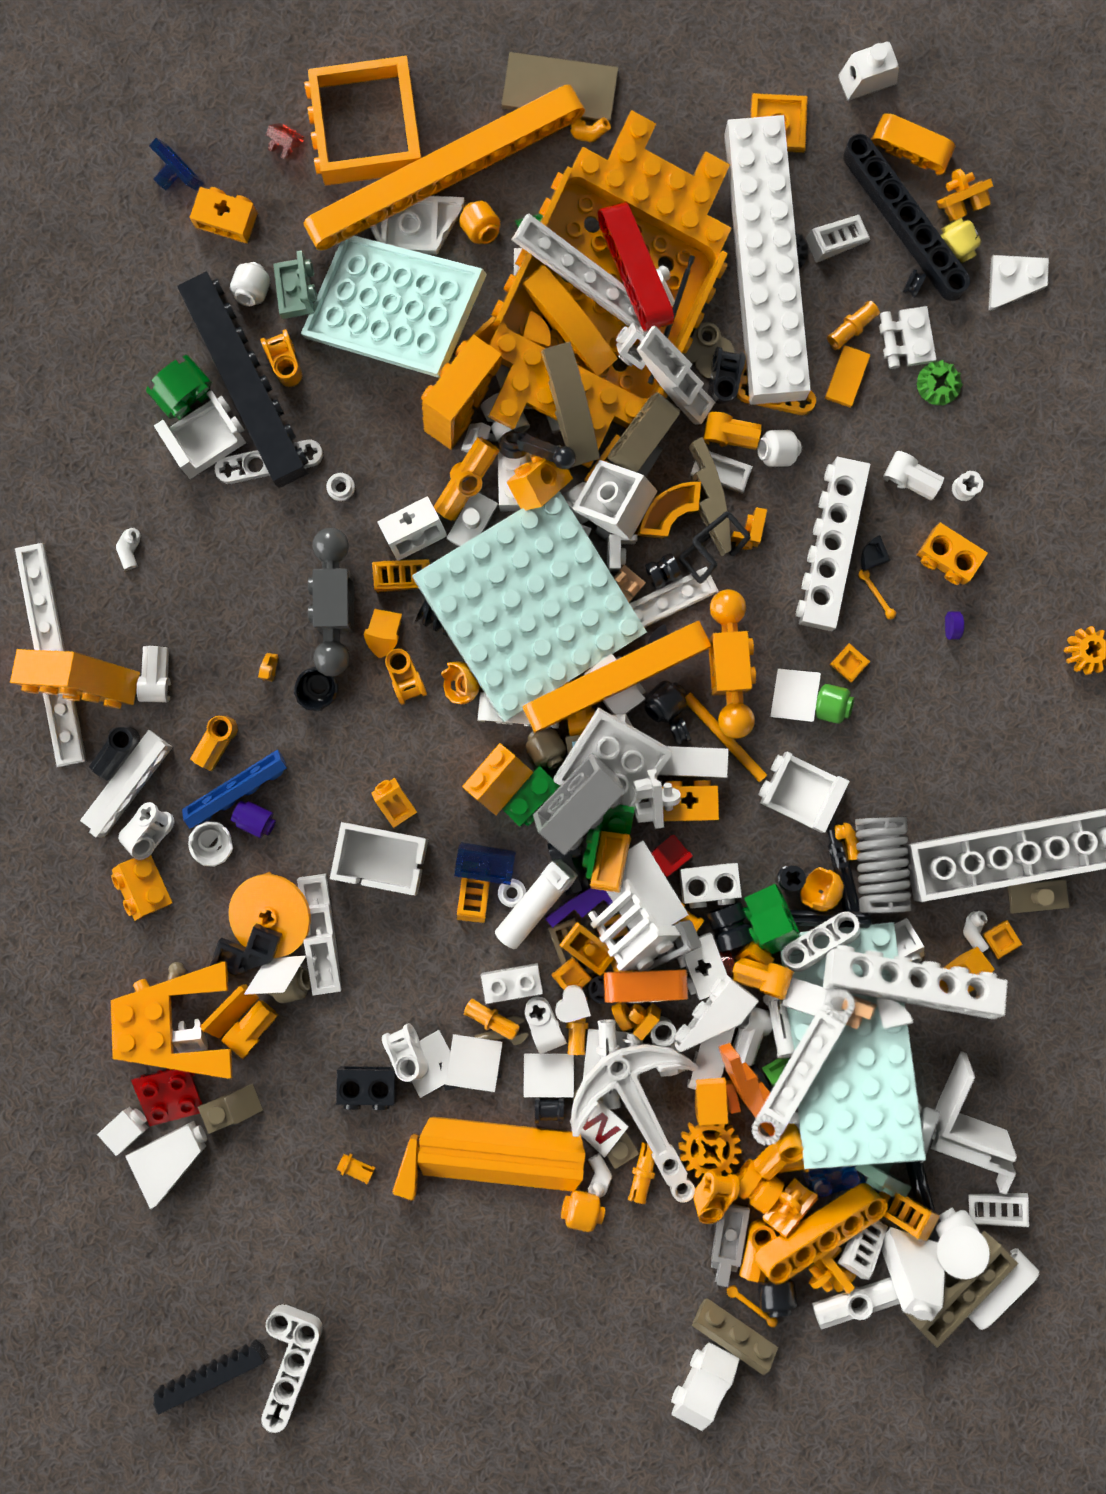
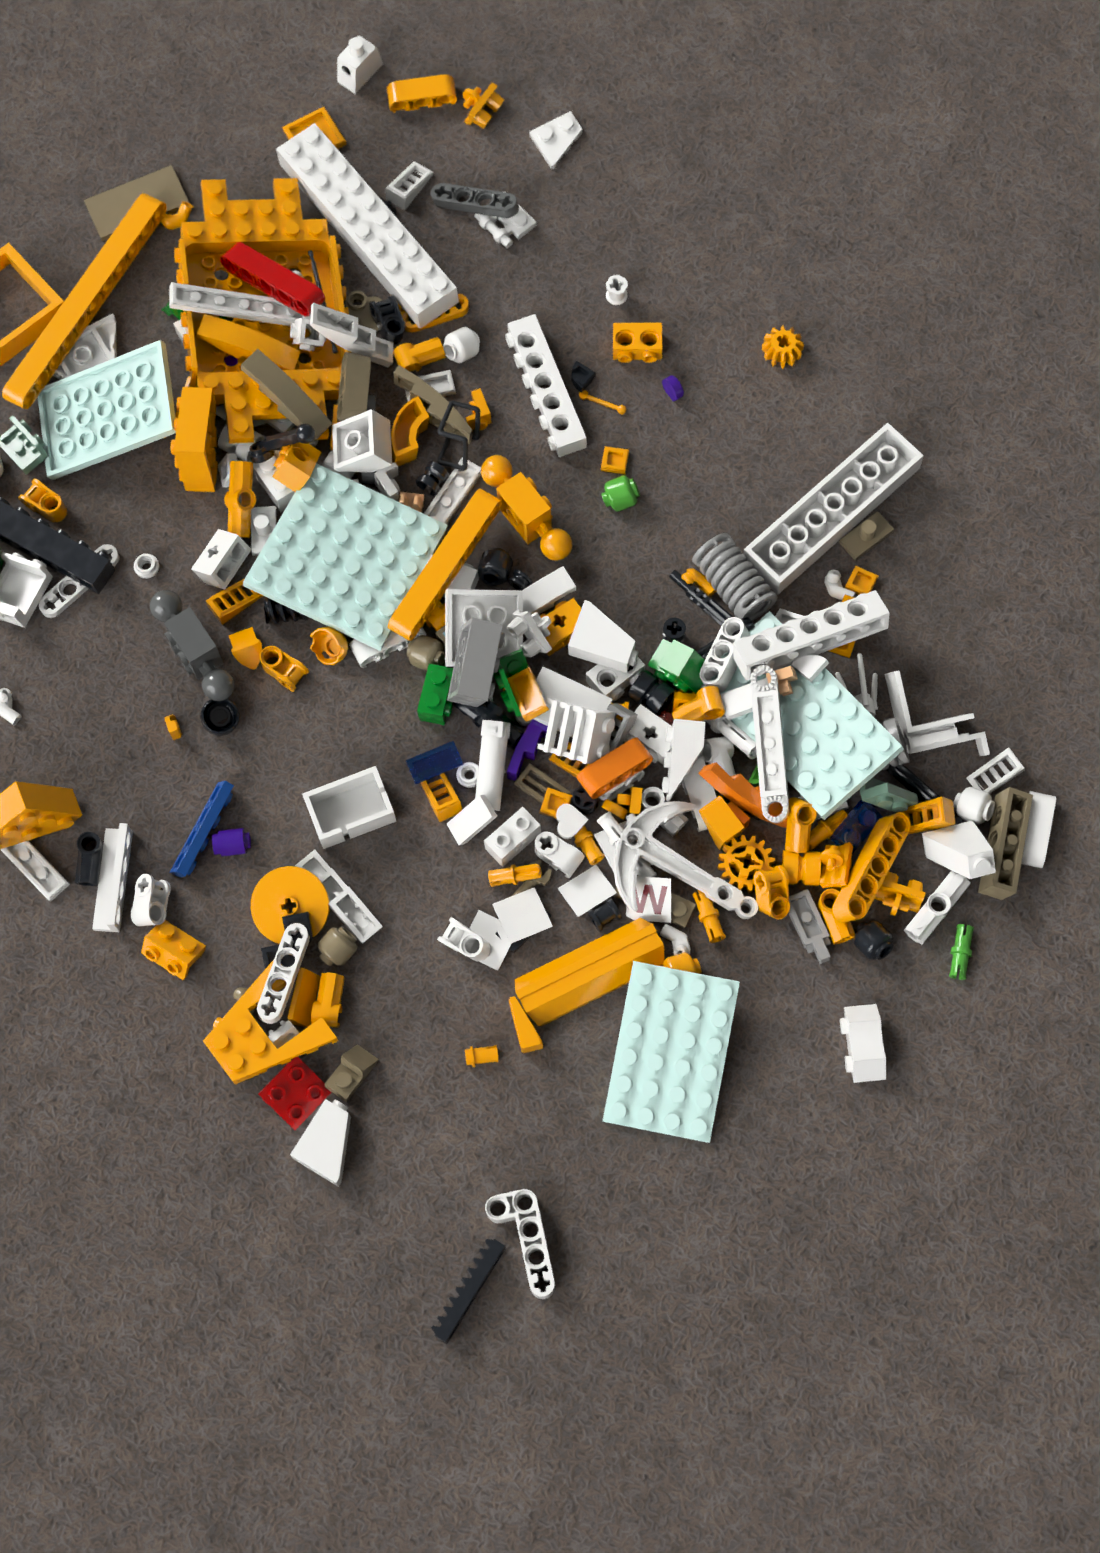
camera: 30 degrees left, 15 degrees down
(123, 1130) = (276, 1140): white brick -> none
(154, 680) = (87, 788): white piece -> none
(201, 839) = (200, 877): white hair -> none
(212, 744) = (164, 806): light orange piece -> none
(222, 987) = (280, 972): none -> white beam
(275, 976) = (322, 941): white sticker -> none
(366, 1078) = (445, 979): black brick -> none
(393, 802) = (333, 762): light orange bracket -> none
(479, 222) = (135, 323): light orange head -> none
(484, 943) = (472, 819): none -> white tile
(497, 779) = (402, 691): light orange slope -> none
(525, 1282) = (671, 1051): none -> light aqua plate
(537, 330) = (226, 362): light orange tile -> none
(587, 948) = (553, 770): light orange slope -> none
(670, 855) = (574, 670): red panel -> none
(715, 851) = (601, 640): none -> white slope
(729, 742) = (552, 566): light orange bar -> none
(732, 1291) = (883, 965): light orange hinge -> none
(735, 1336) = (862, 991): dark tan plate -> none
(795, 695) = (589, 504): white sticker -> none
(803, 792) = (641, 568): white panel -> none
(823, 880) = (701, 620): light orange hair -> none
(847, 376) = (479, 270): light orange tile -> none
(850, 1357) = (961, 951): none -> bright green pin
(853, 325) = (459, 234): light orange pin -> none
(865, 1269) = (913, 876): white slope -> none
(894, 296) = (505, 208): none -> dark grey beam
(905, 205) = (441, 135): black beam -> none
(909, 474) = (566, 307): white piece -> none
(914, 283) = (485, 180): black bush -> none
(925, 1064) = (864, 699): none -> white plant
(942, 395) = (557, 241): bright green gear -> none
(961, 239) = (498, 135): light yellow head -> none
(963, 1252) = (985, 810): white sticker -> none

